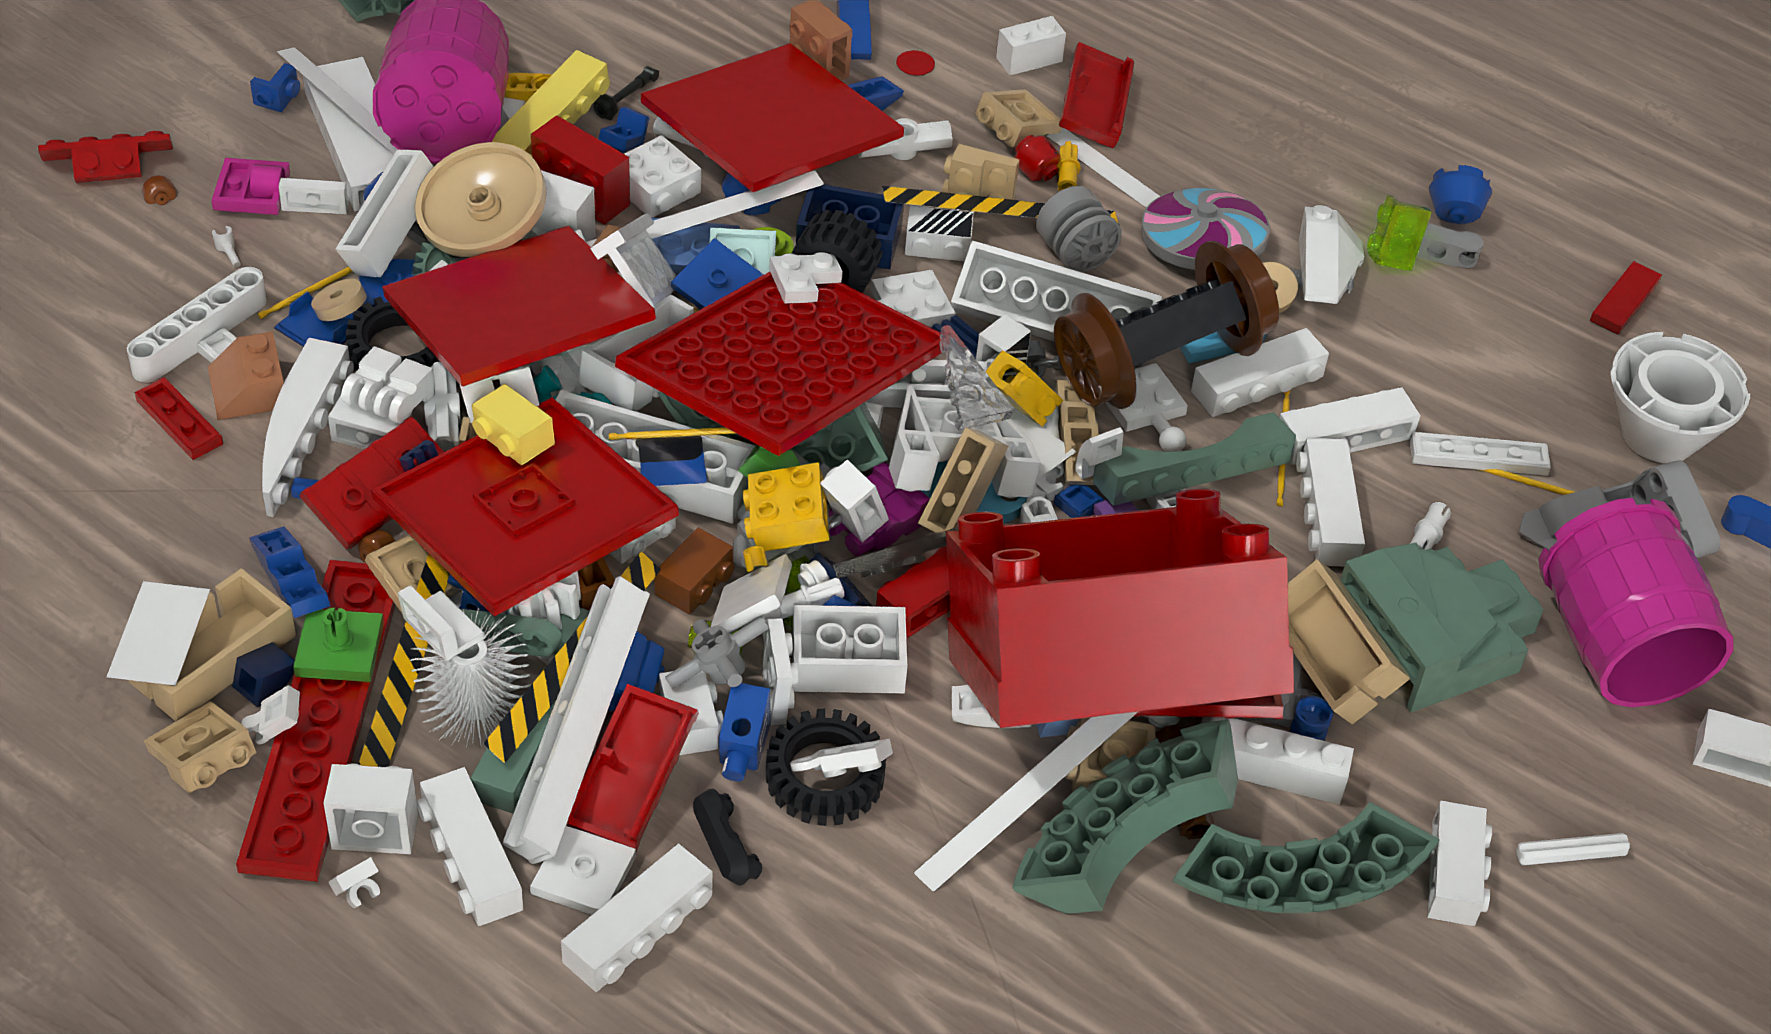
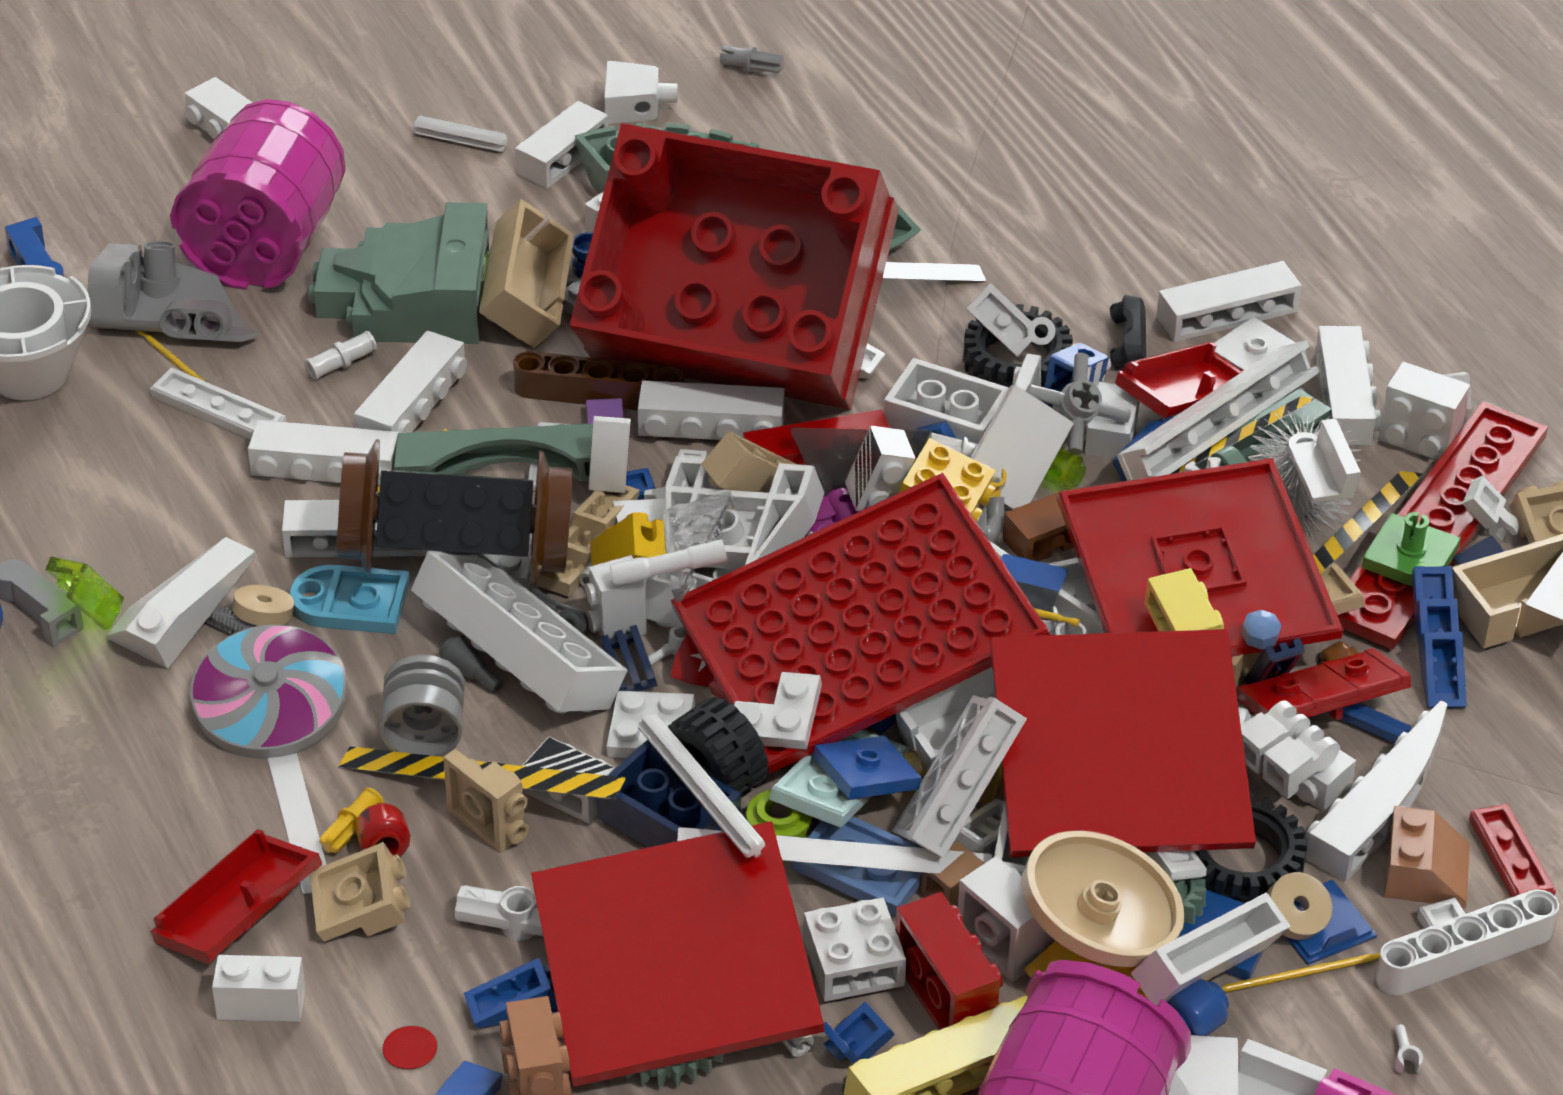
camera: 150 degrees left, 5 degrees down
(441, 450) = (1261, 629): none -> medium blue tile
(820, 192) = (701, 785): none -> white axle
(948, 338) = (692, 557): none -> white piece
(1451, 975) = (635, 91): none -> white torso

